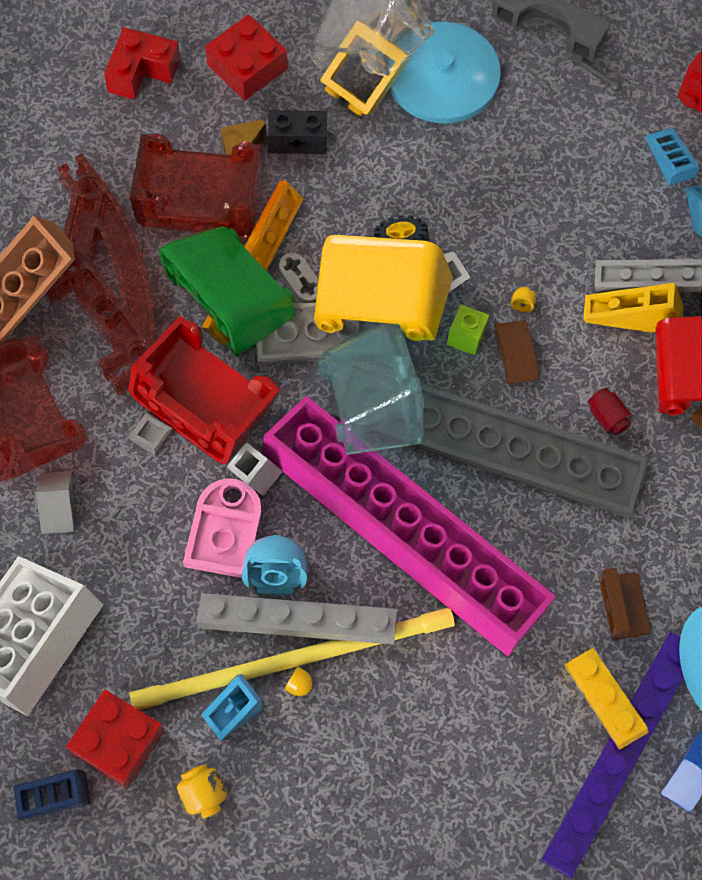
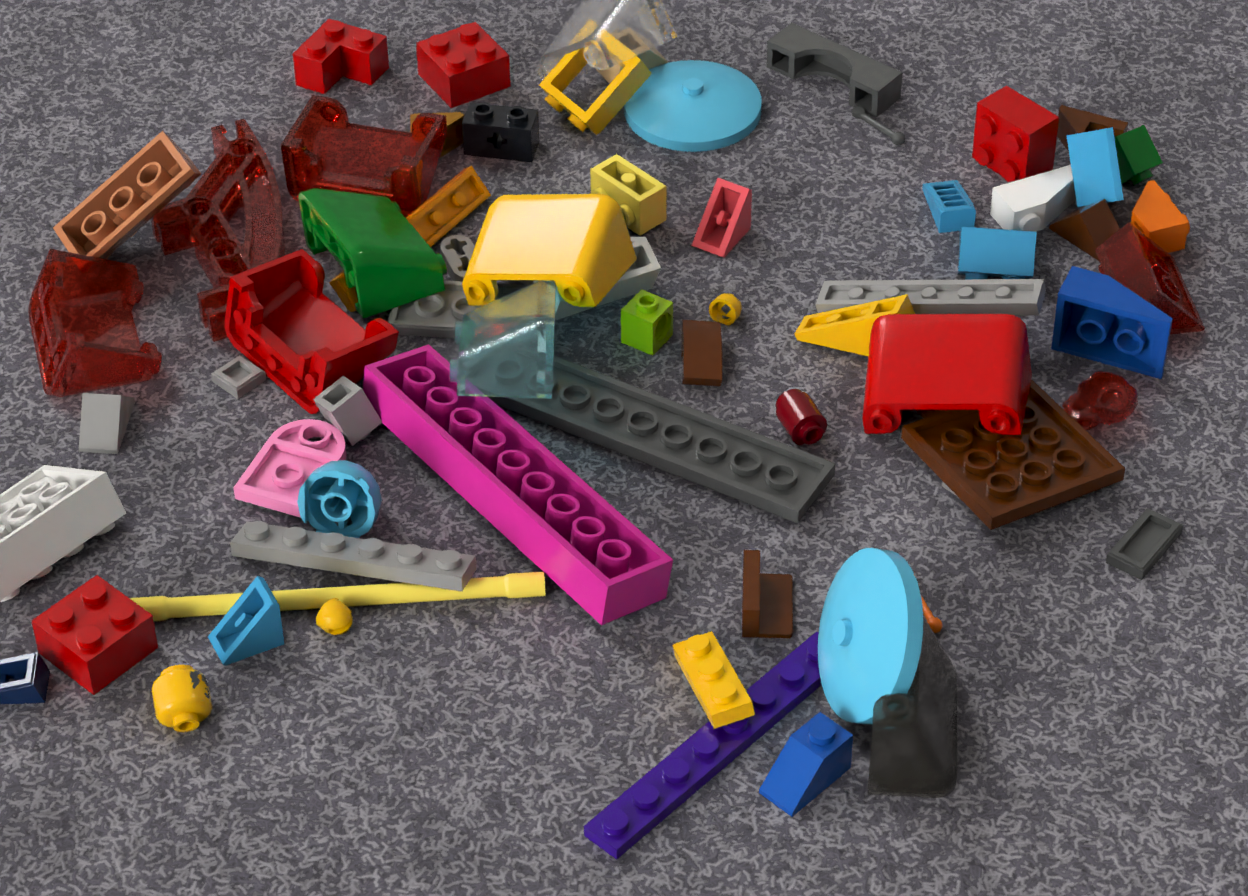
camera: 15 degrees right, 25 degrees down
(420, 191) = (634, 190): none -> light yellow brick
(501, 206) = (724, 219): none -> coral slope

